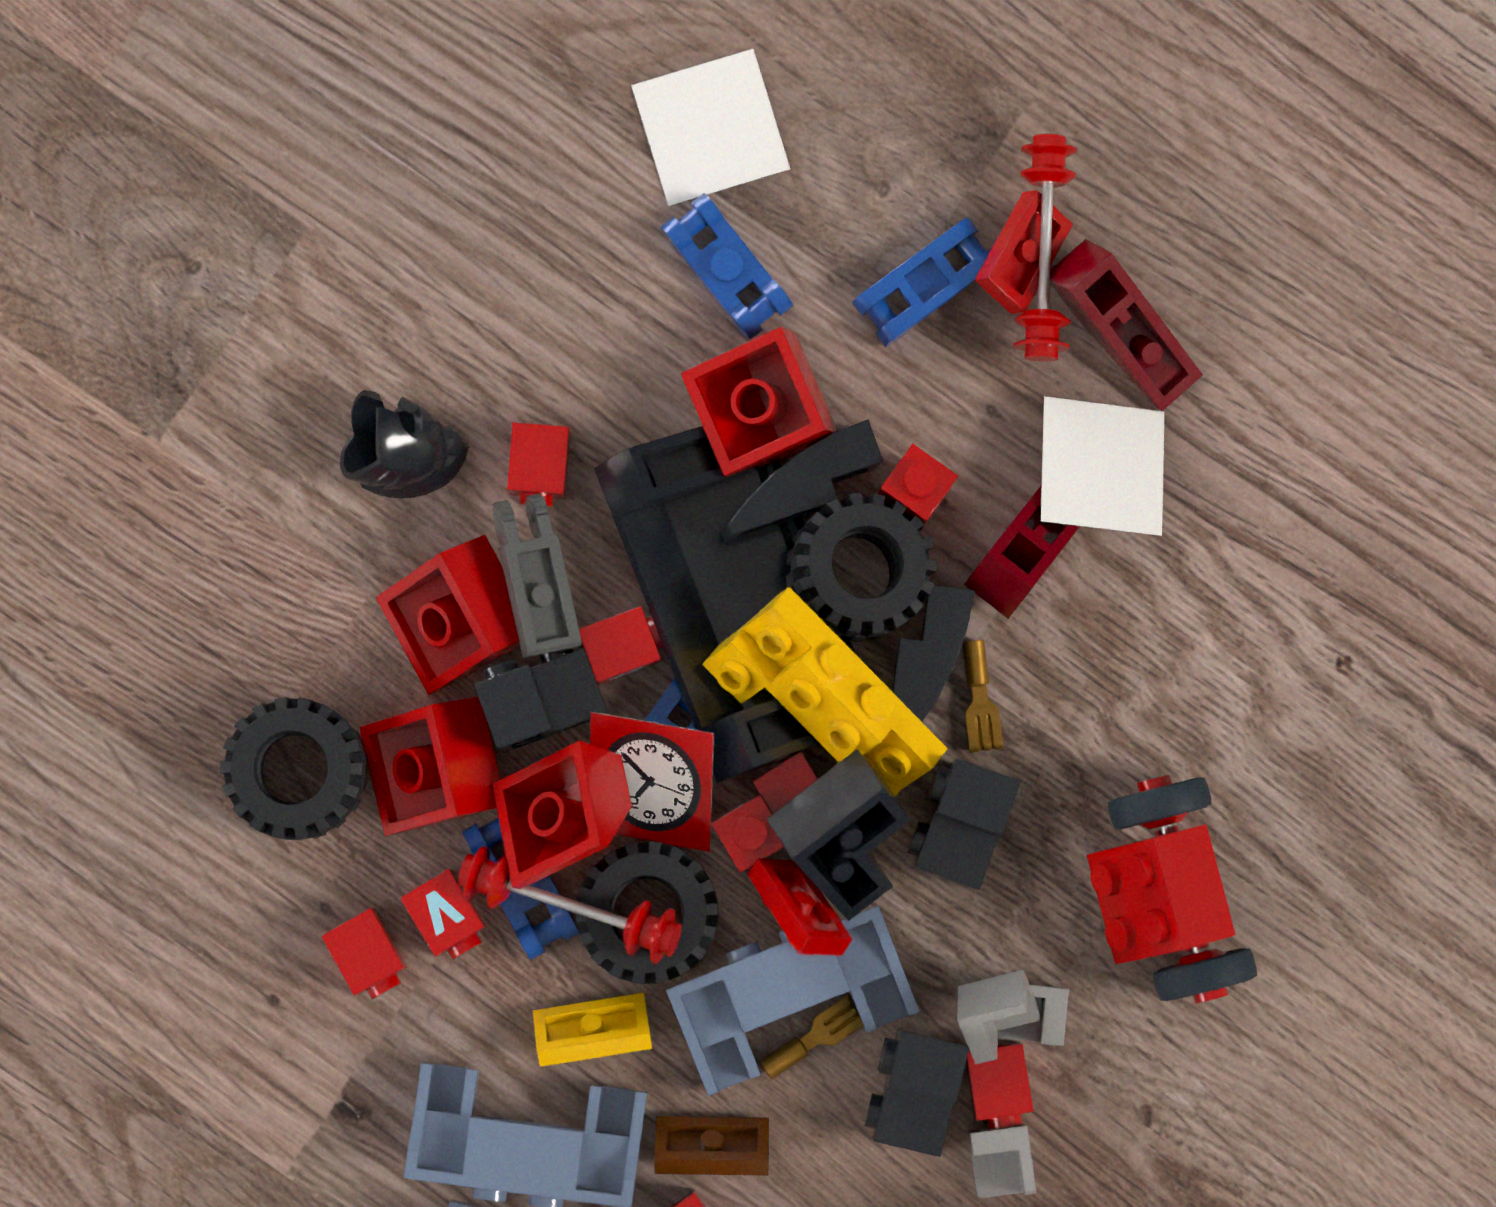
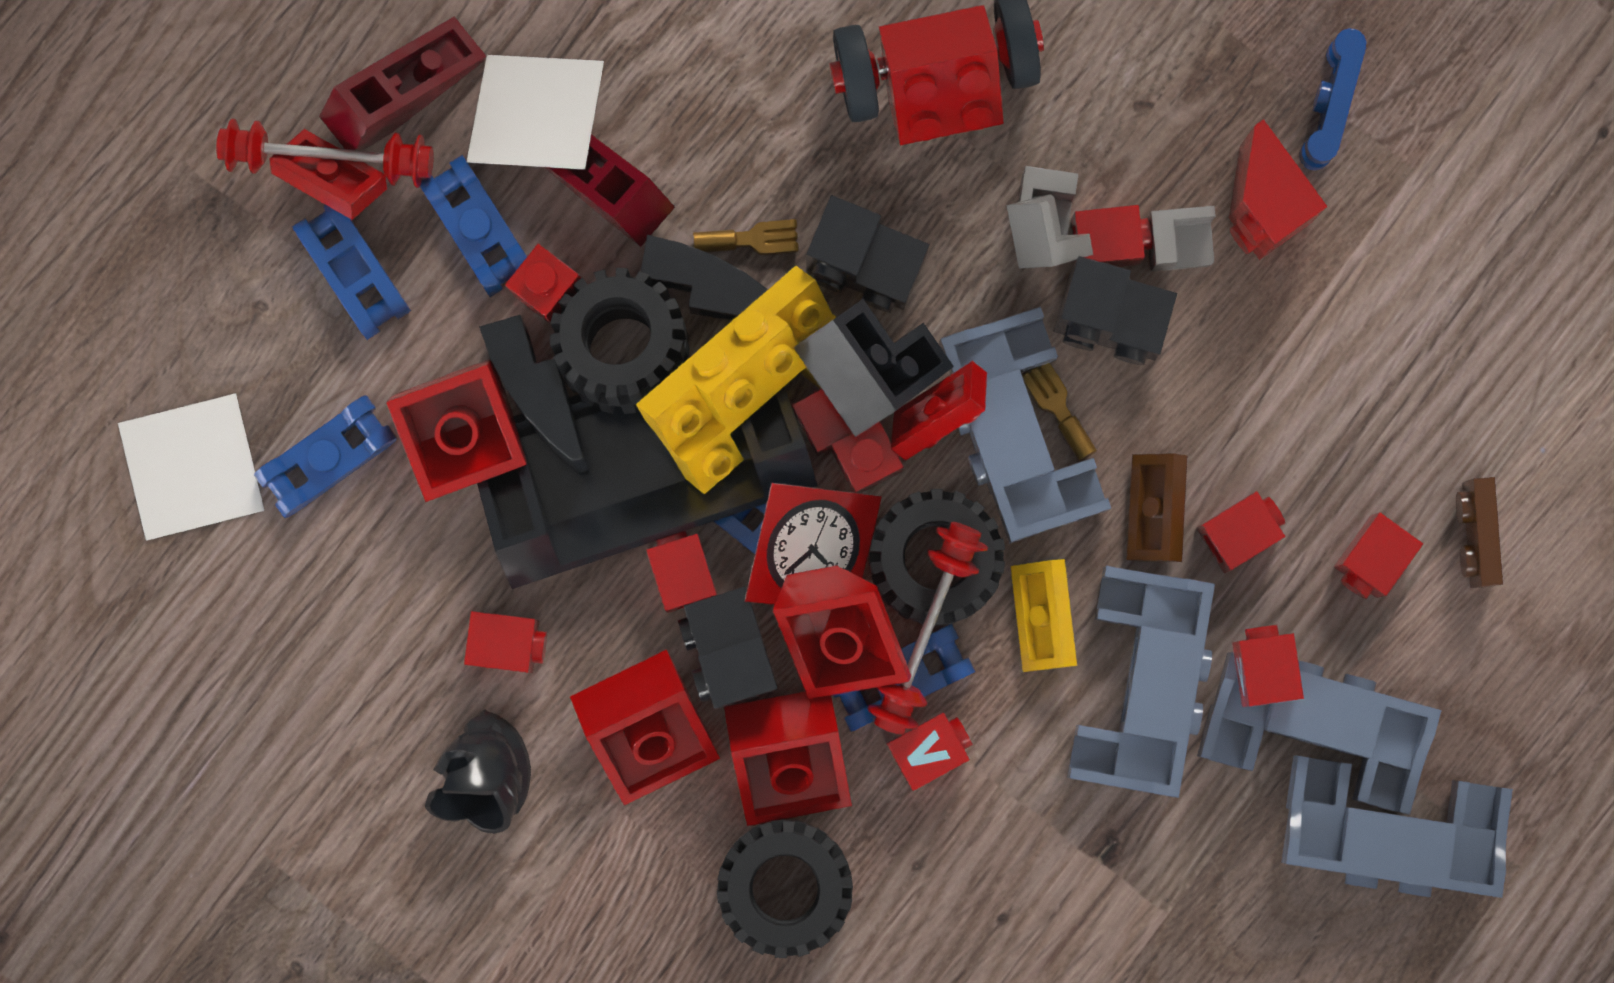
camera: 85 degrees left, 0 degrees up
(366, 954) = (964, 827): red brick -> none
(536, 580) = (616, 647): dark grey hinge -> none
(979, 409) = (474, 224): none -> blue plate

